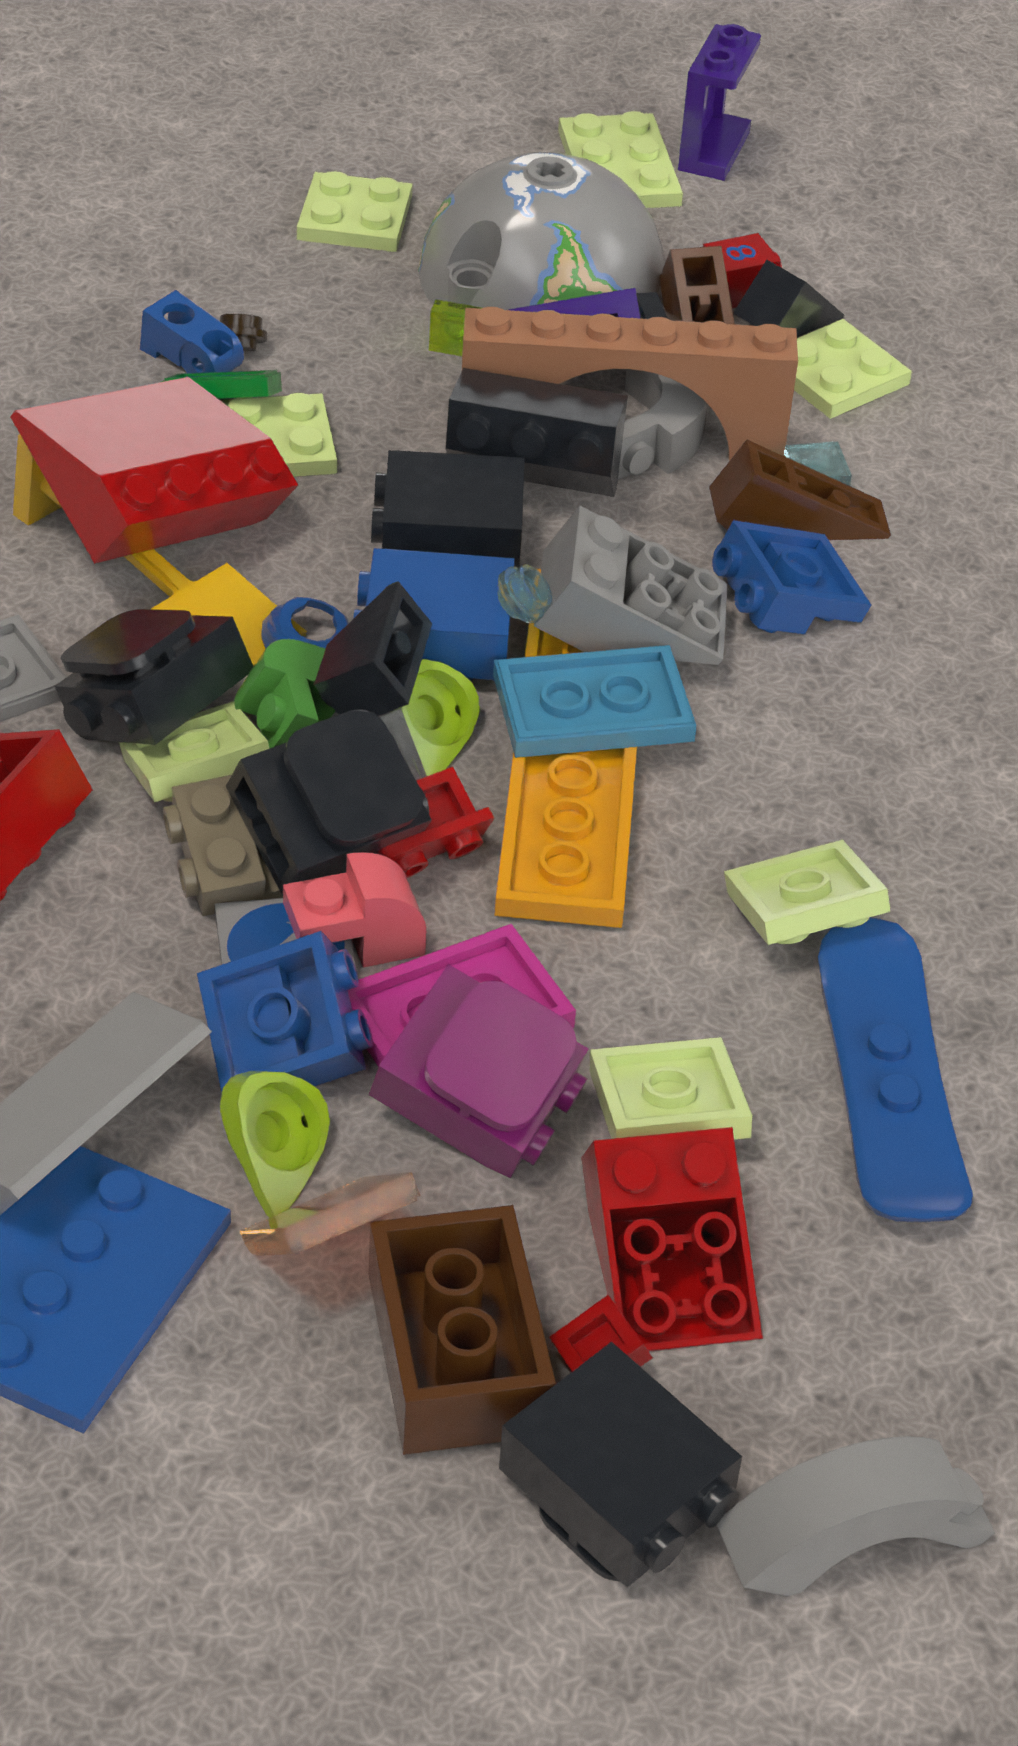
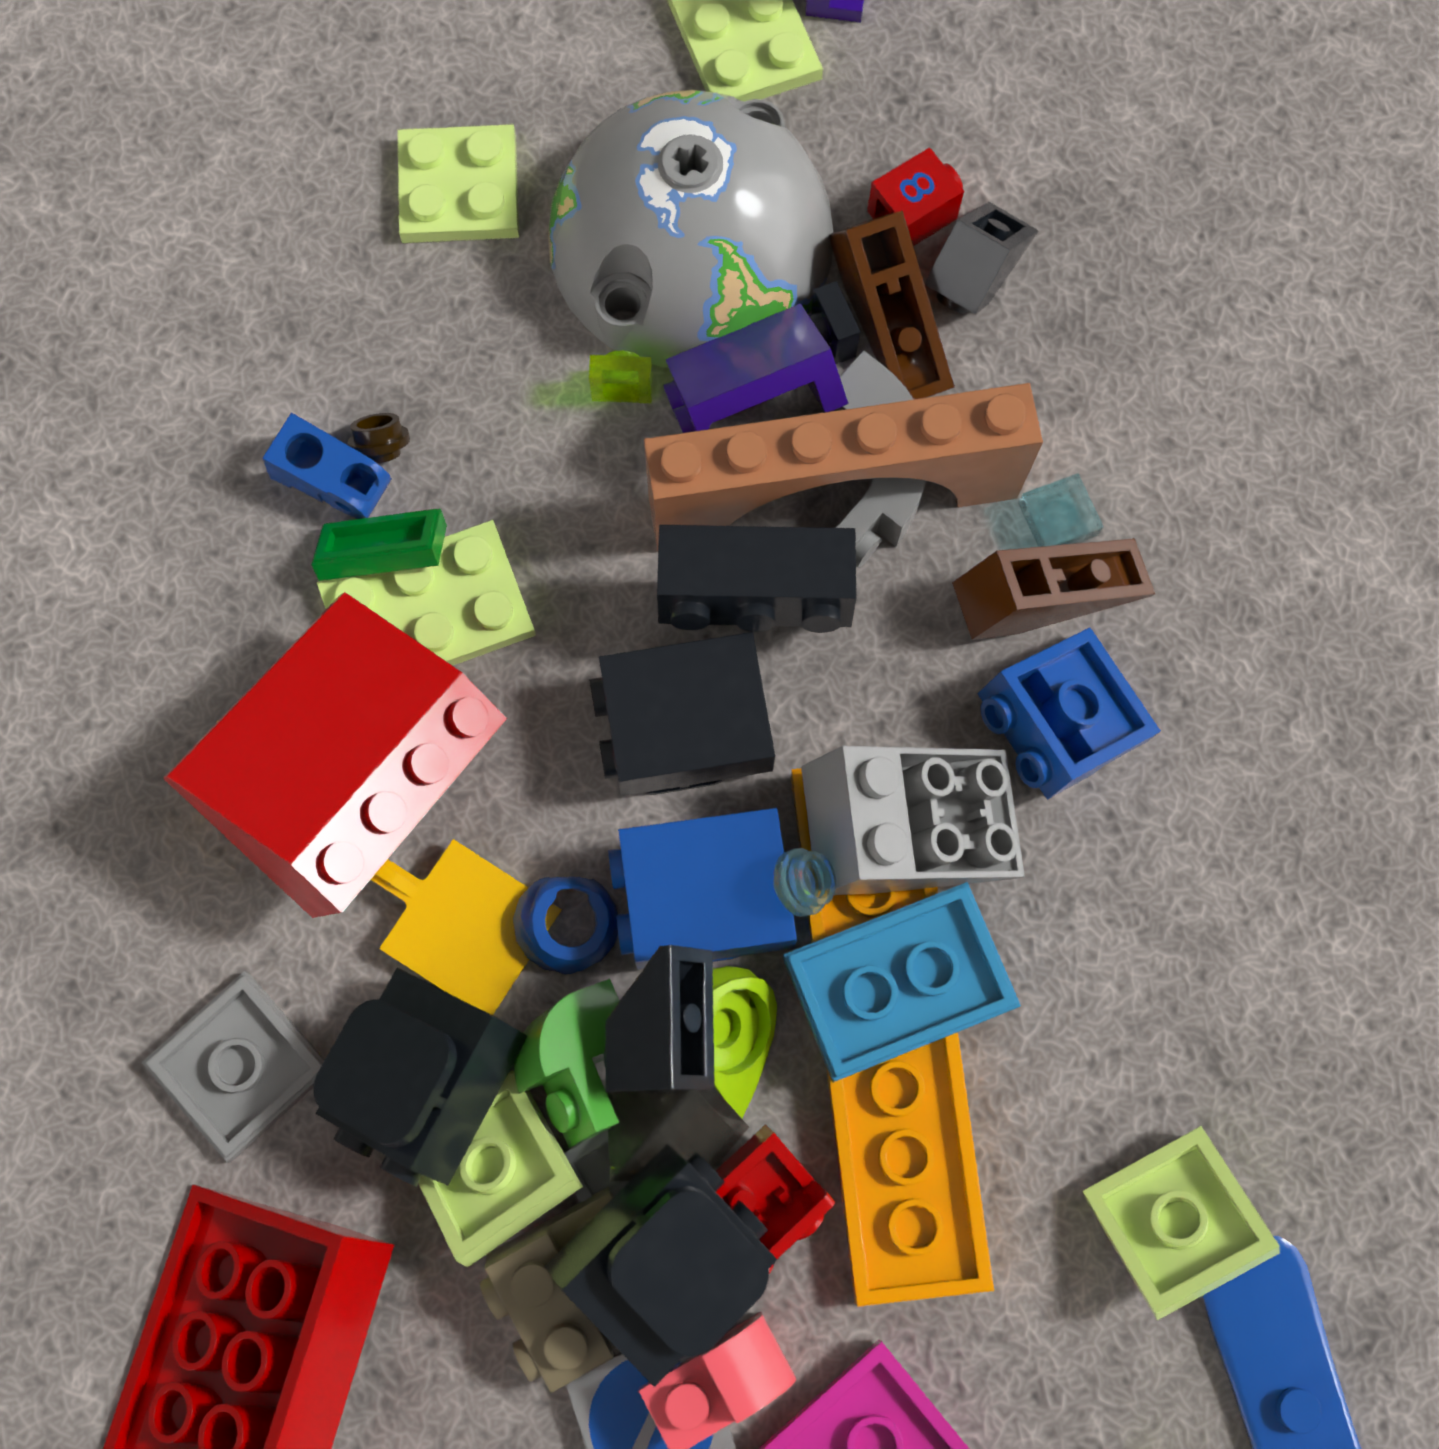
camera: 10 degrees left, 30 degrees up
(845, 369) = (1048, 329): yellowish green plate -> none

